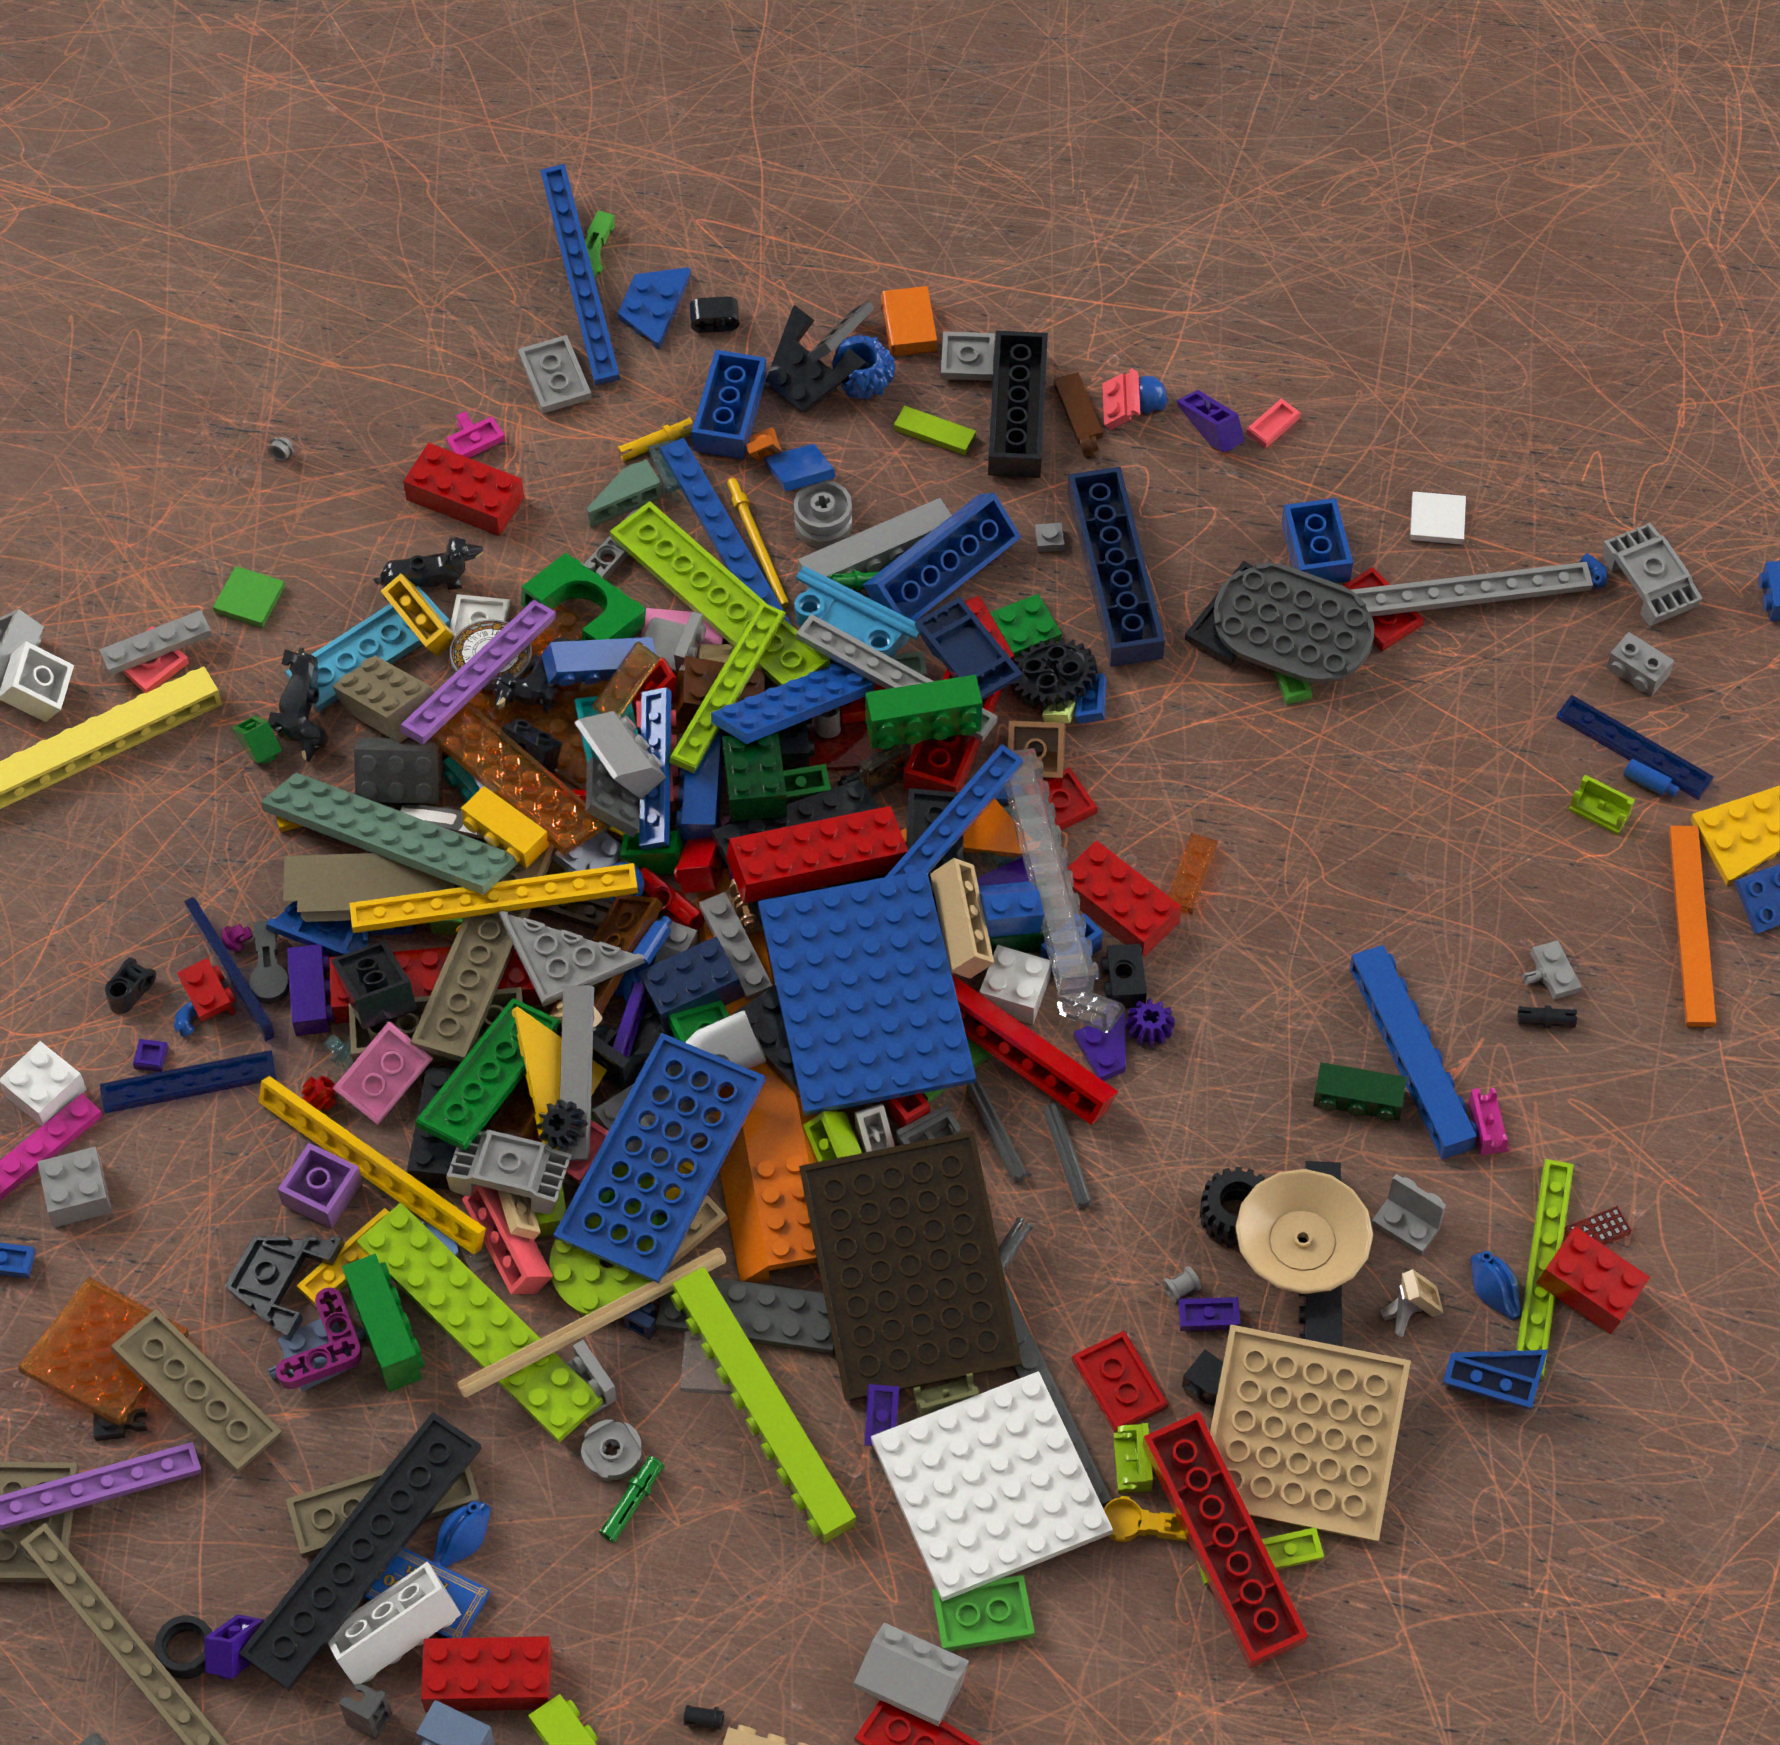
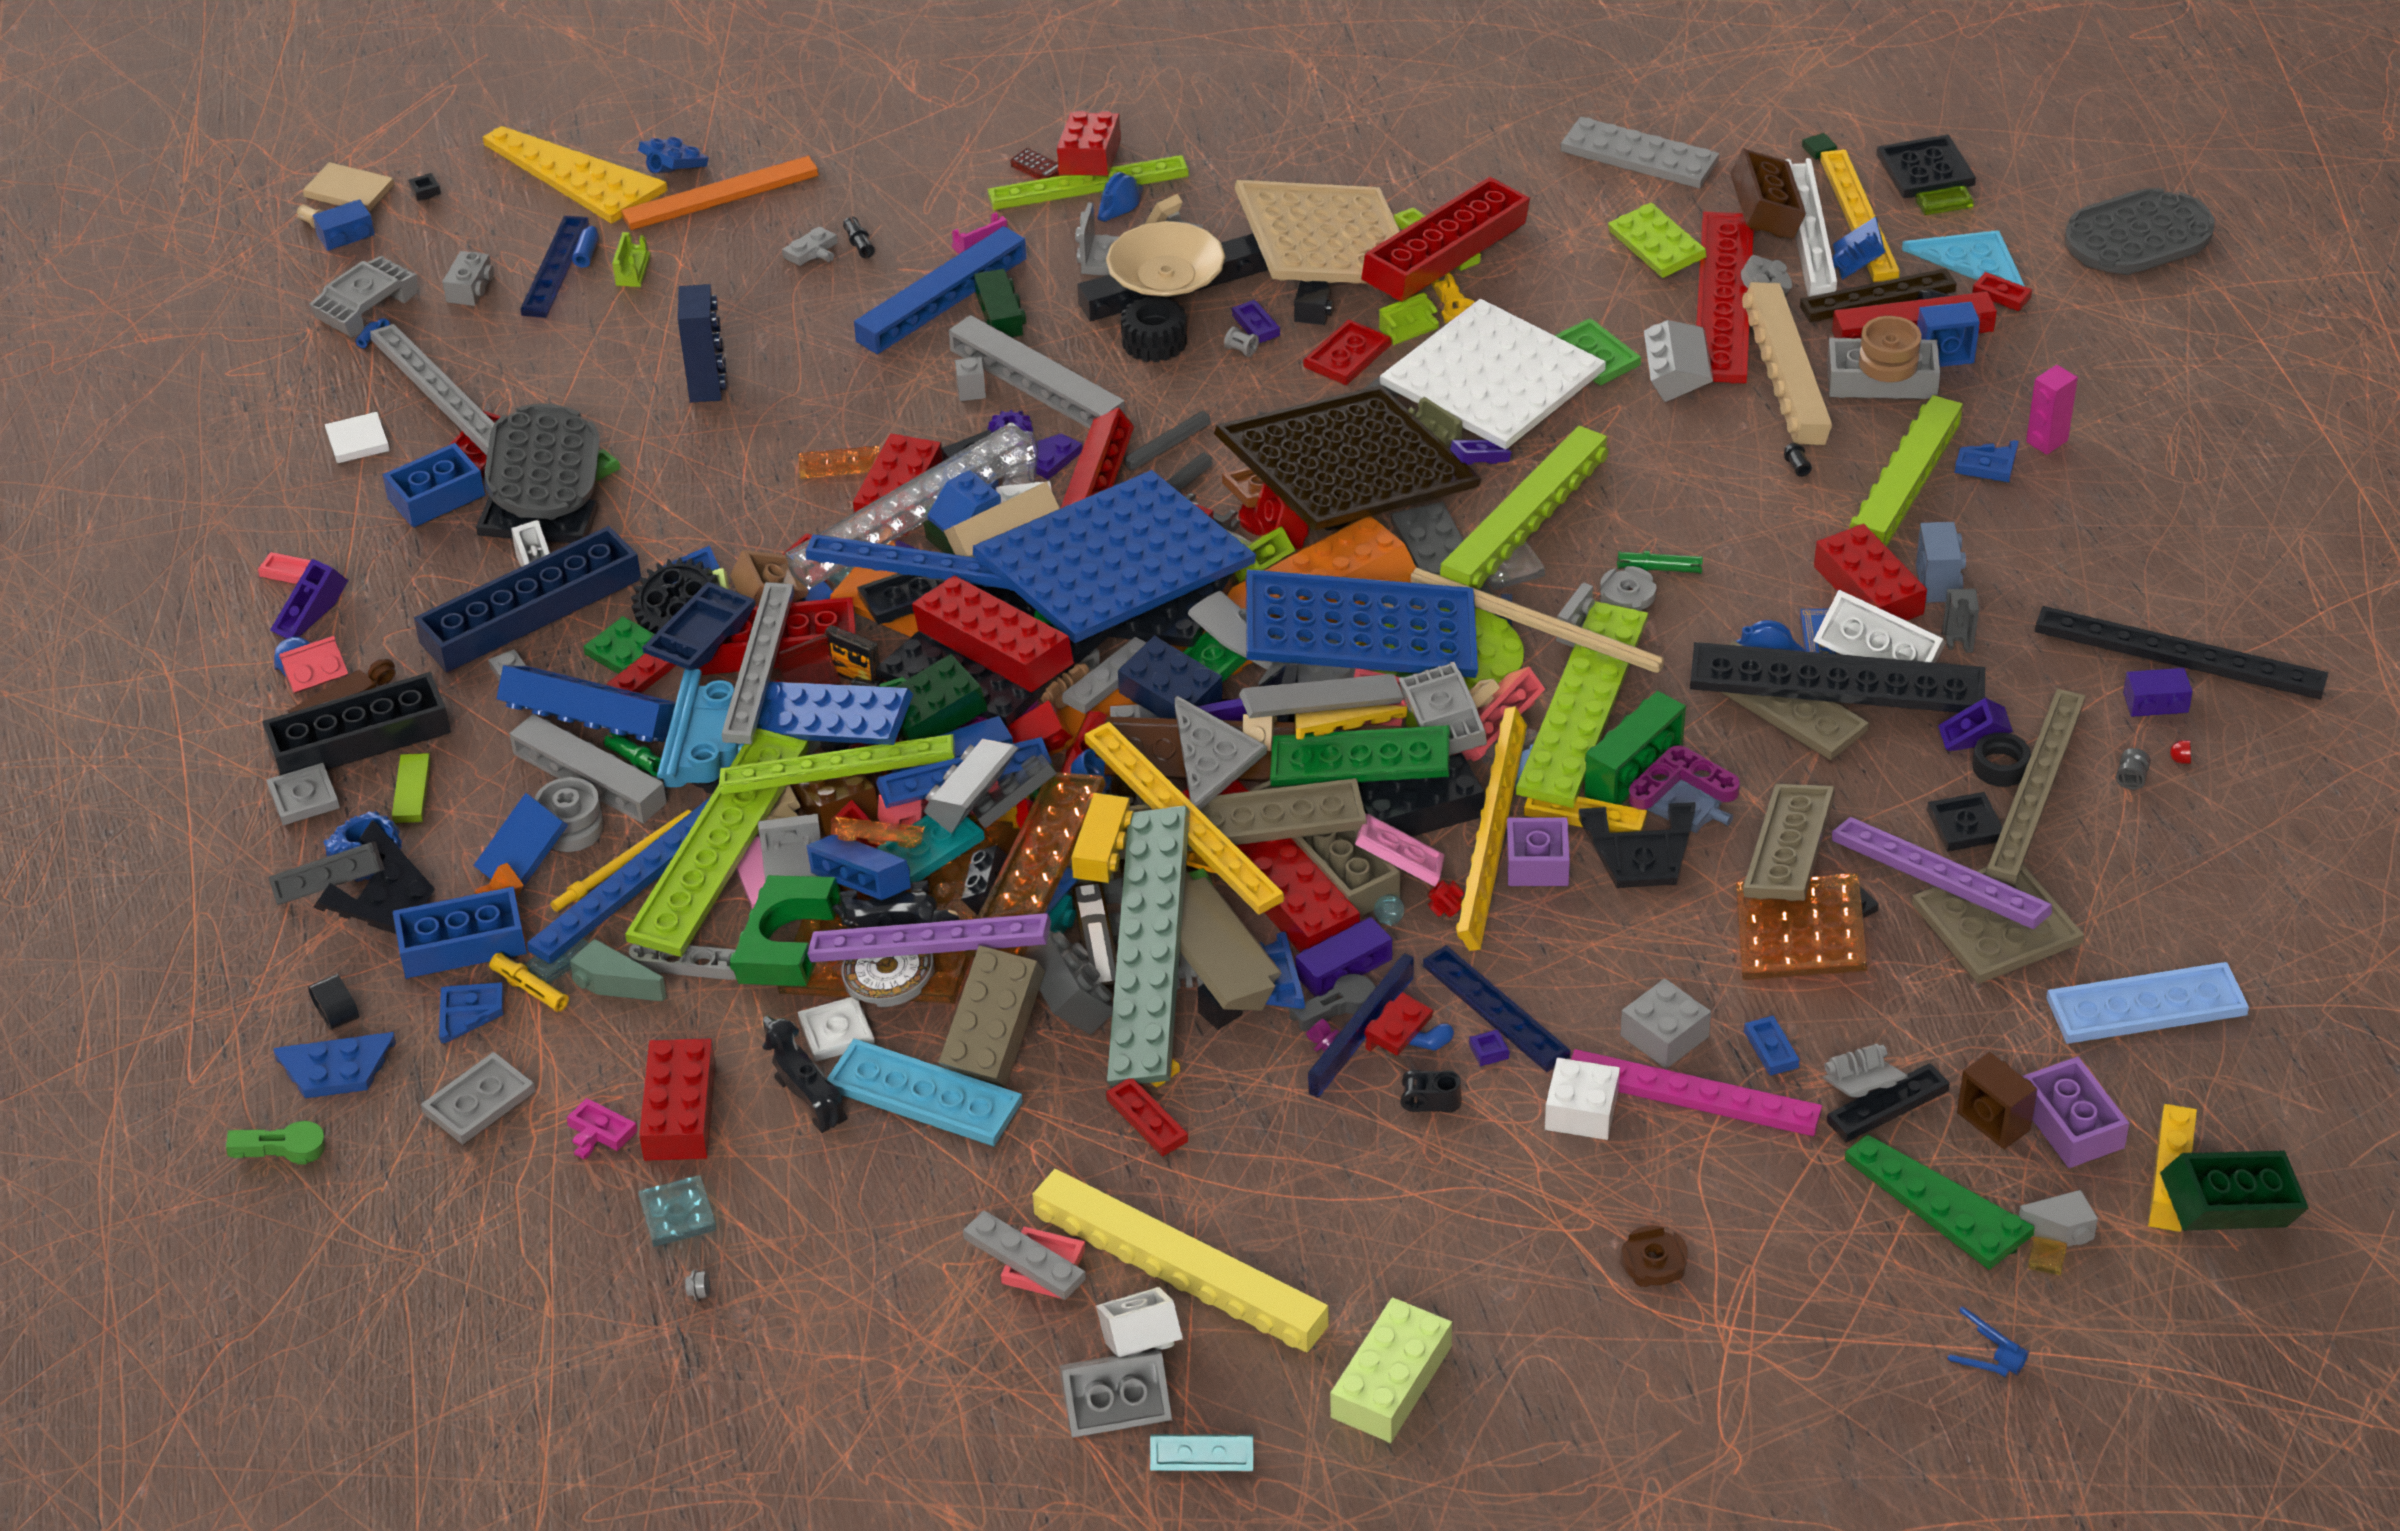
camera: 115 degrees left, 15 degrees down
(135, 1567) = (1965, 821): none -> black plate
(240, 783) = (1147, 1116): none -> red plate
(249, 596) = (910, 1224): bright green tile -> none
(257, 739) = (1086, 1126): green slope -> none
(297, 703) = (1029, 1100): black animal -> none
(358, 457) = (677, 1211): none -> clear light blue plate
(374, 984) = (1323, 871): black slope -> none
(418, 615) = (873, 1038): yellow brick -> none
(555, 1117) = (1379, 684): black gear -> none
(580, 275) = (326, 1123): blue plate -> none
(653, 940) = (1150, 711): blue cylinder -> none
(654, 394) = (468, 1008): none -> blue wing
(909, 321) = (272, 852): orange piece -> none
(923, 712) = (804, 601): green brick -> none
(1182, 593) = (529, 542): none -> white slope
(1224, 1079) = (1032, 372): none -> light grey brick
(1247, 1017) = (970, 379): none -> light grey brick
(1383, 782) = (701, 343): none -> dark blue brick
(1499, 1376) = (1203, 162): blue wedge -> none

